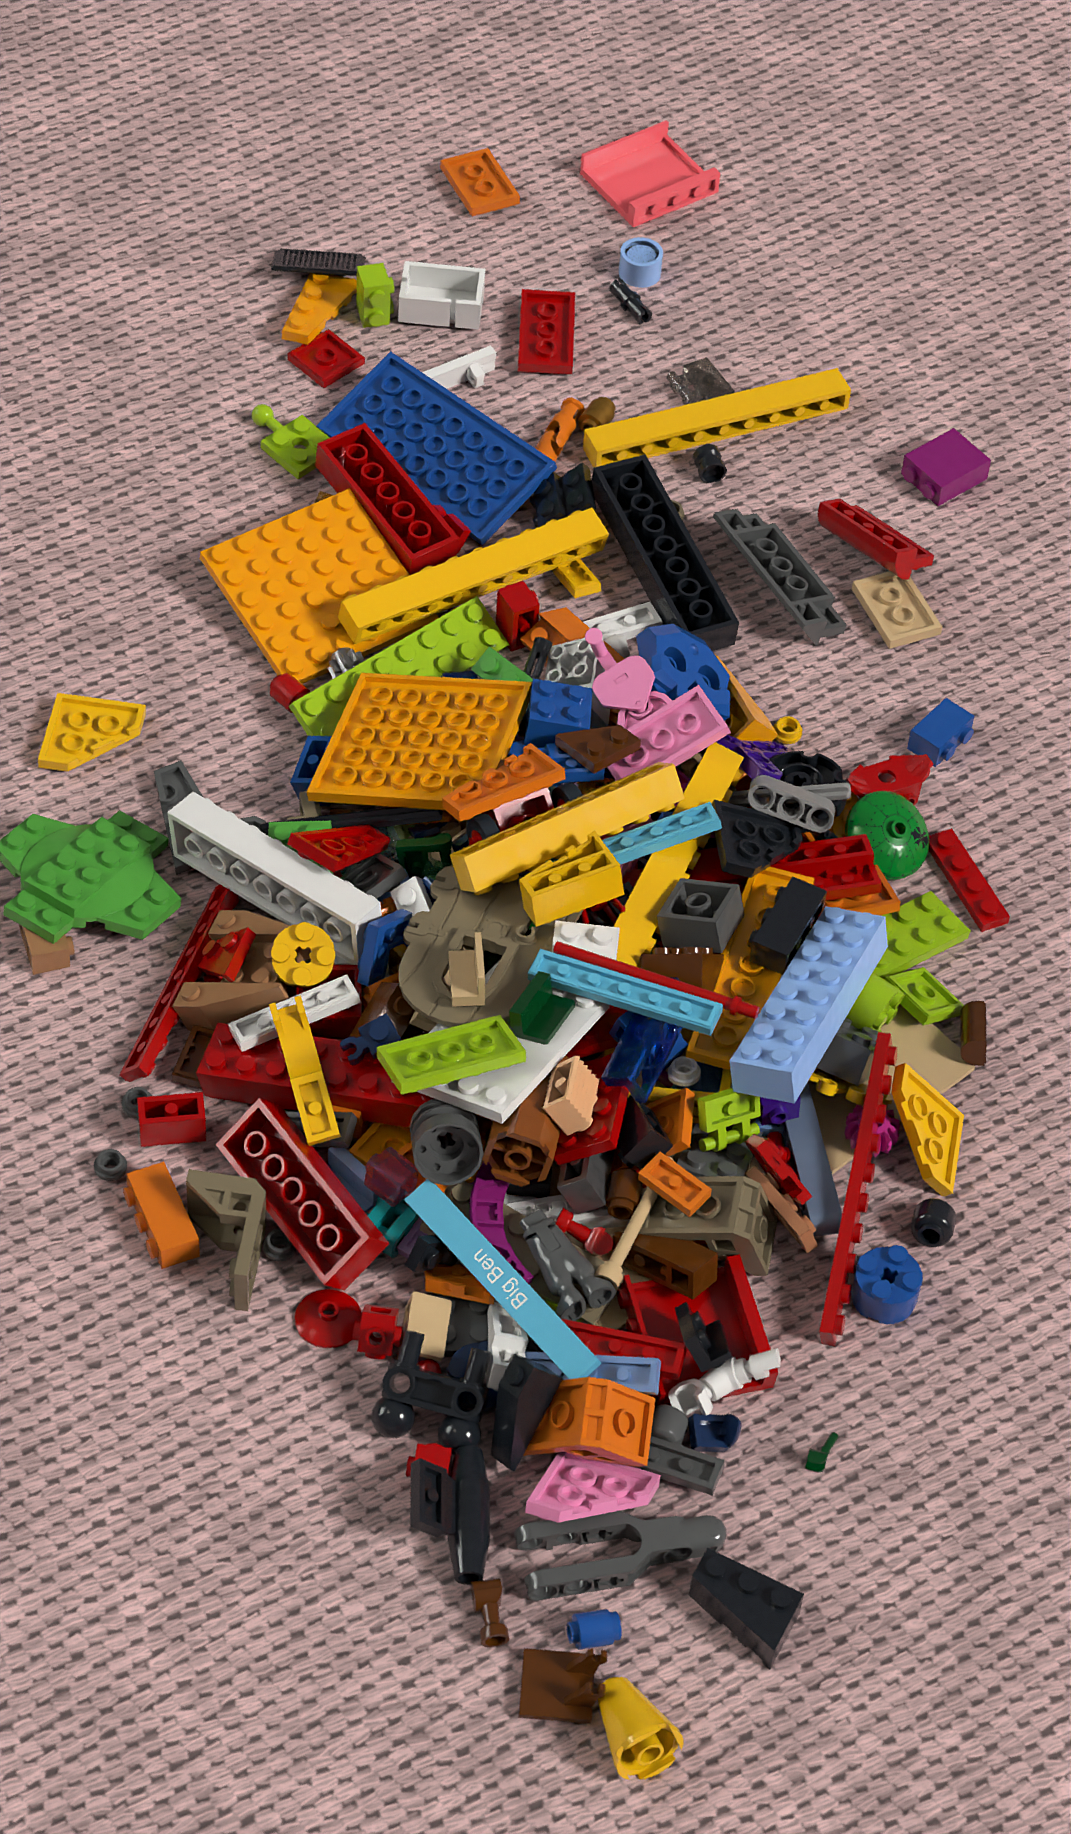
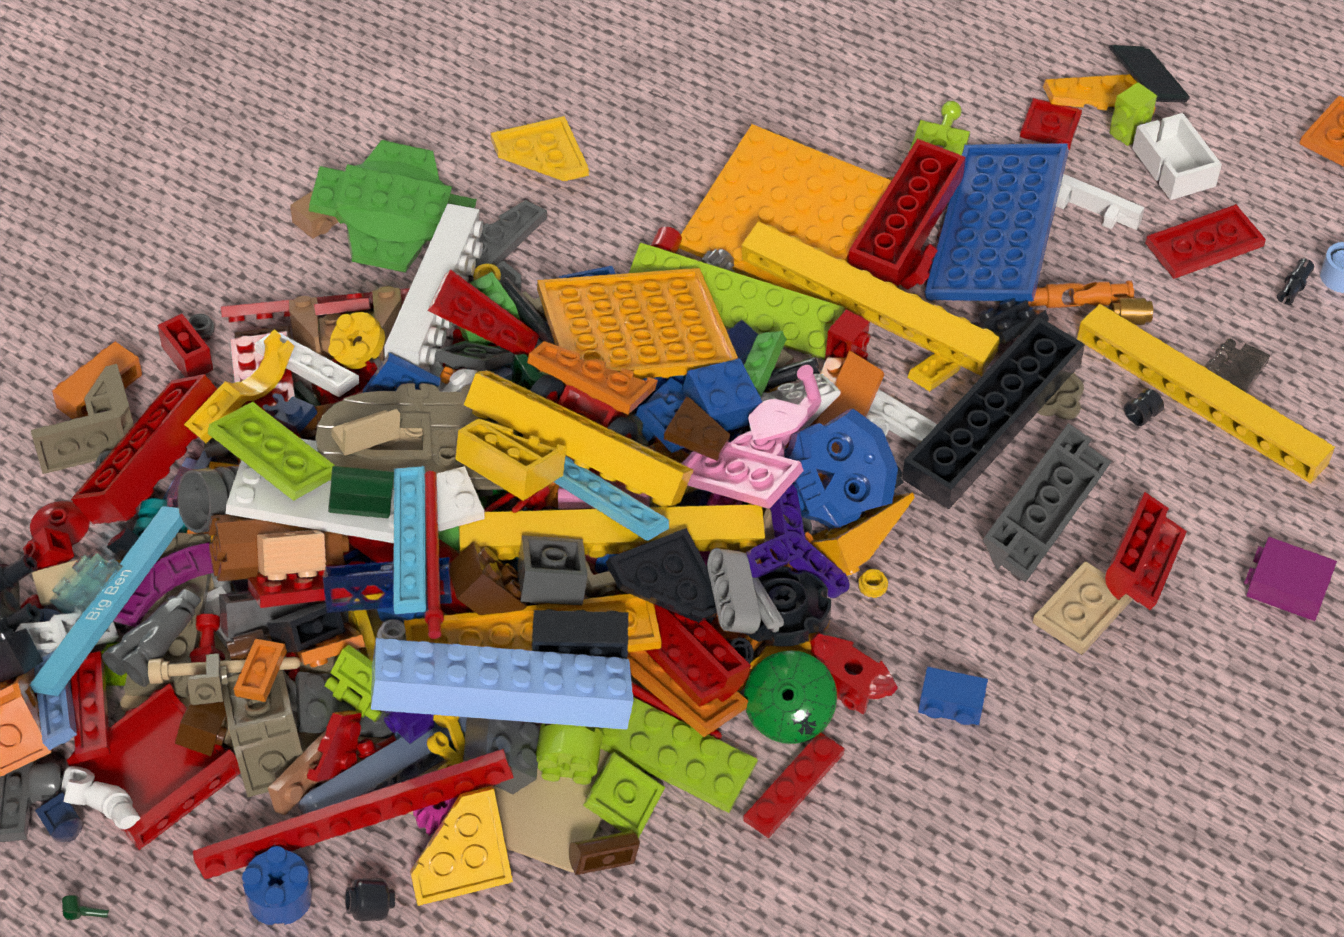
camera: 65 degrees right, 0 degrees up
(110, 1157) = (132, 336): dark grey plate -> none
(467, 1297) = (85, 584): none -> clear light blue plate
(661, 1228) = (208, 686): none -> dark tan bracket
(705, 1342) = (130, 760): black bracket -> none

